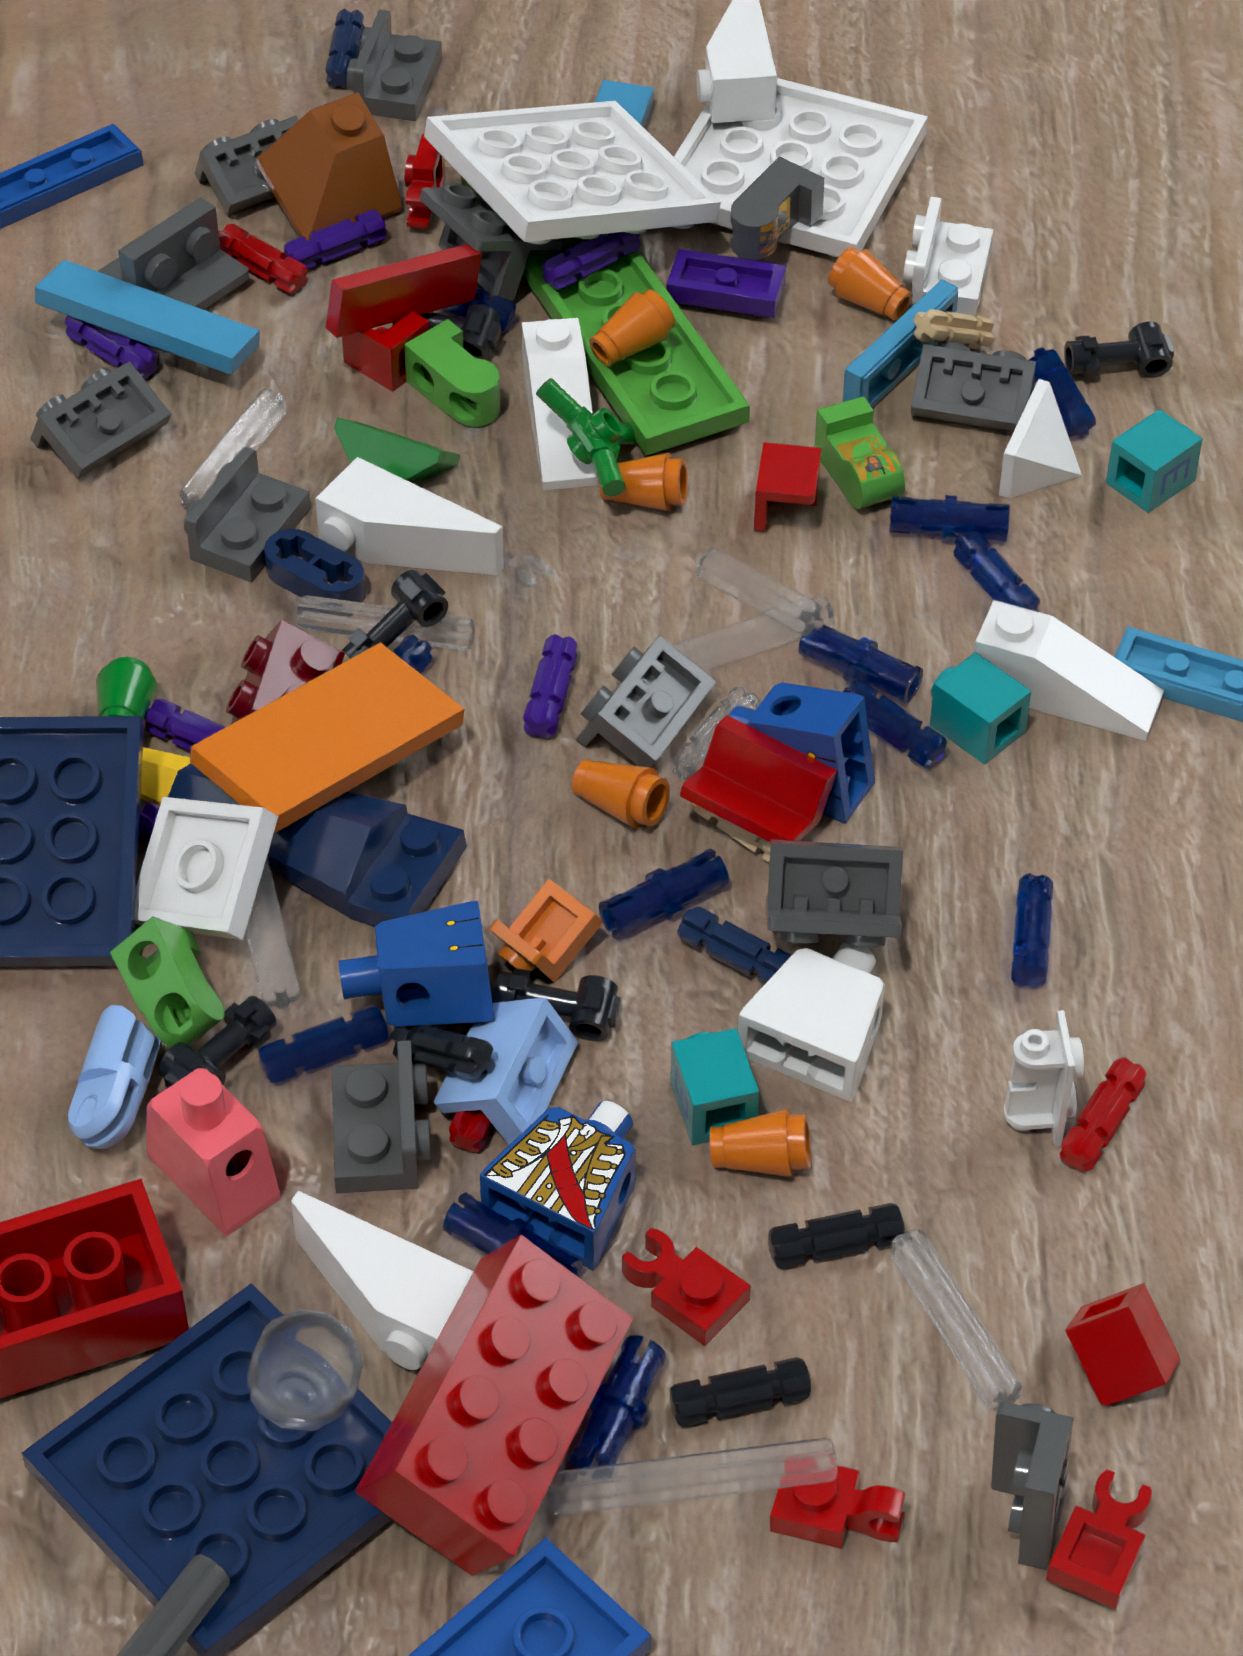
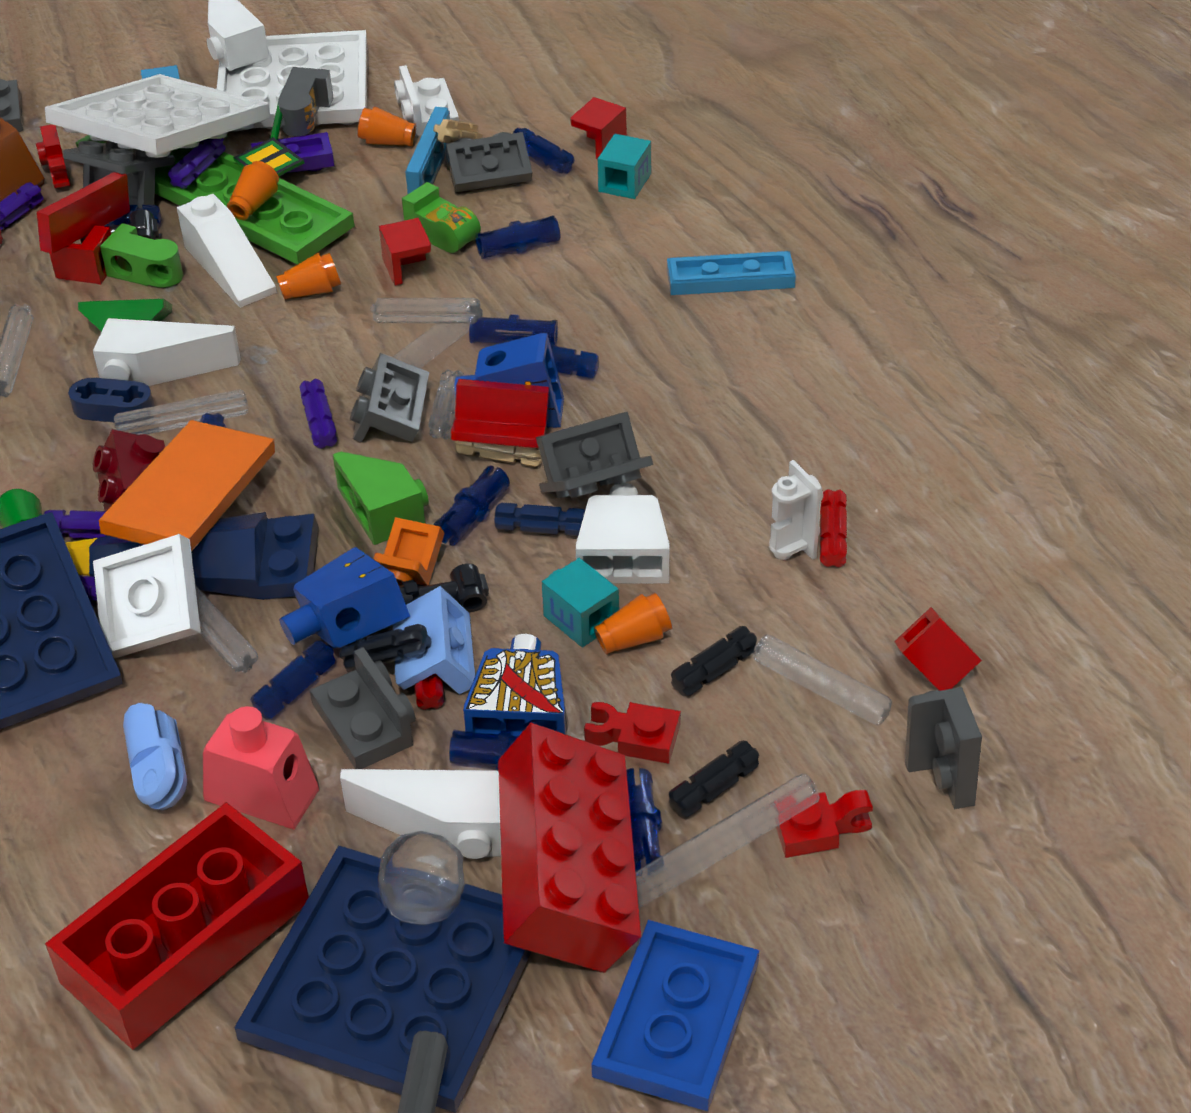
camera: 25 degrees left, 5 degrees down
(169, 982) = (162, 679): bright green leg -> none
(239, 515) = (40, 386): dark grey bracket -> none
(246, 1025) = (230, 689): black bar -> none
(417, 599) = (200, 386): black bar -> none
(558, 836) = (379, 493): none -> bright green slope
(594, 436) = (263, 257): green piece -> none
(624, 791) = (415, 451): orange cone -> none
(690, 281) = (272, 151): none -> piece
(979, 707) = (607, 329): teal brick -> none
(993, 571) = (568, 259): clear blue axle -> none
(1032, 931) = (720, 442): clear blue axle -> none
(1039, 447) = (550, 182): white slope -> none
(1067, 671) = (638, 294): white slope -> none
(1101, 1546) = (1003, 775): red plate -> none
(1145, 346) = (547, 125): black bar -> none
(1159, 380) = (600, 121): none -> red panel

